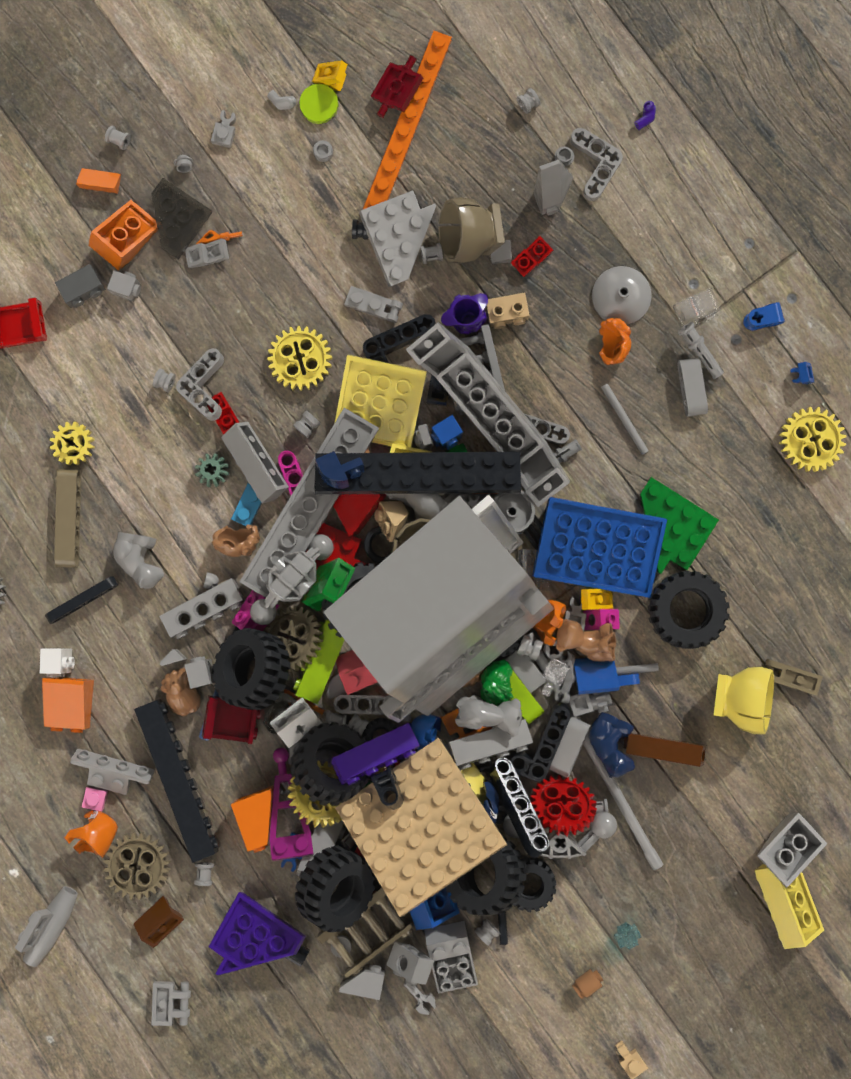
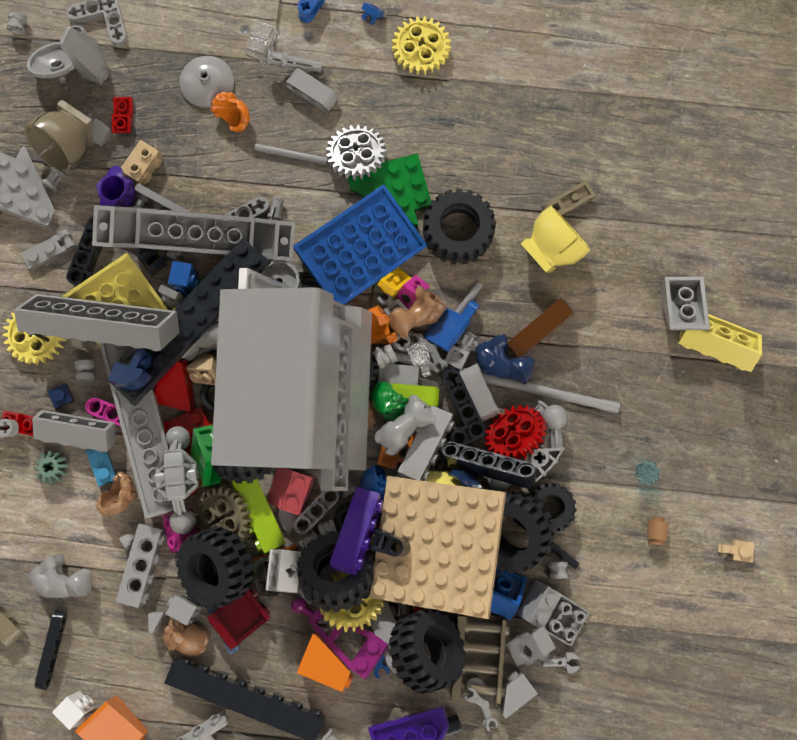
camera: 50 degrees left, 5 degrees down
(271, 423) = (61, 396): none -> dark blue plate
(334, 965) = (484, 705): none -> light grey piece
(352, 405) = (97, 321): none -> light grey brick
(522, 158) = (49, 62): none -> light grey dish
(664, 483) = (362, 149): none -> light grey gear

